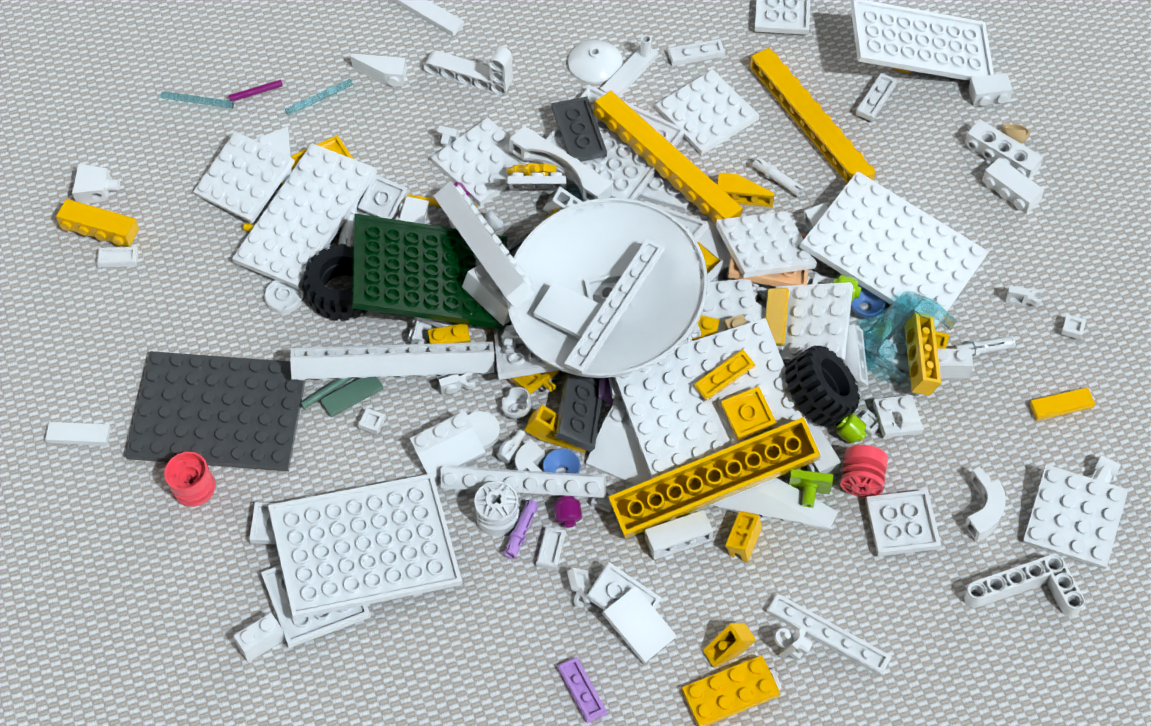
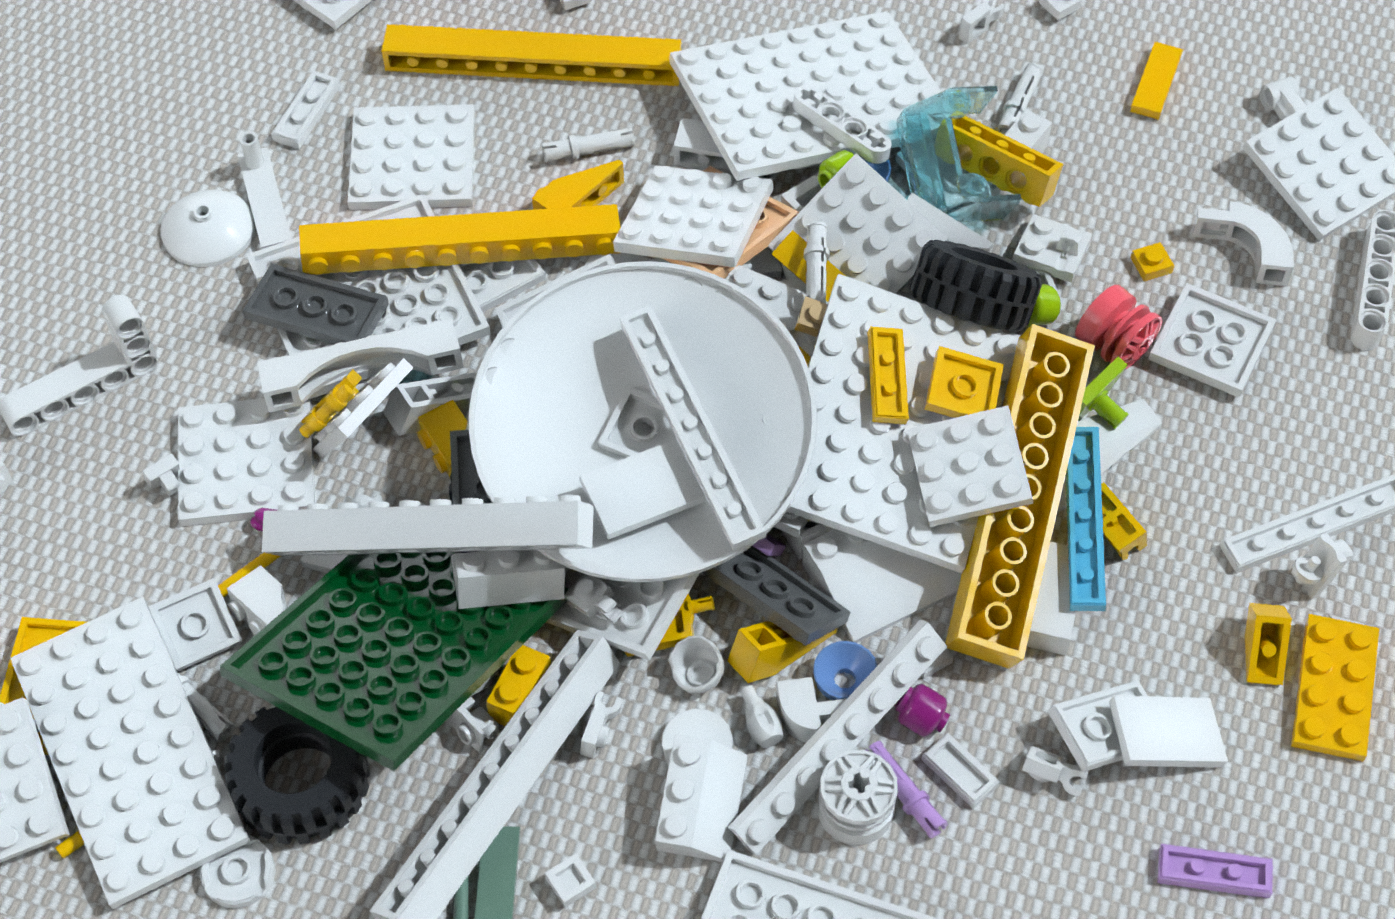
camera: 55 degrees left, 0 degrees up
(701, 441) = (969, 466): none -> white plate
(728, 517) = (1085, 523): none -> medium azure tile
(778, 306) = (816, 257): none -> white pin
(877, 270) = (870, 144): none -> white beam
(932, 468) = (1152, 261): none -> yellow plate

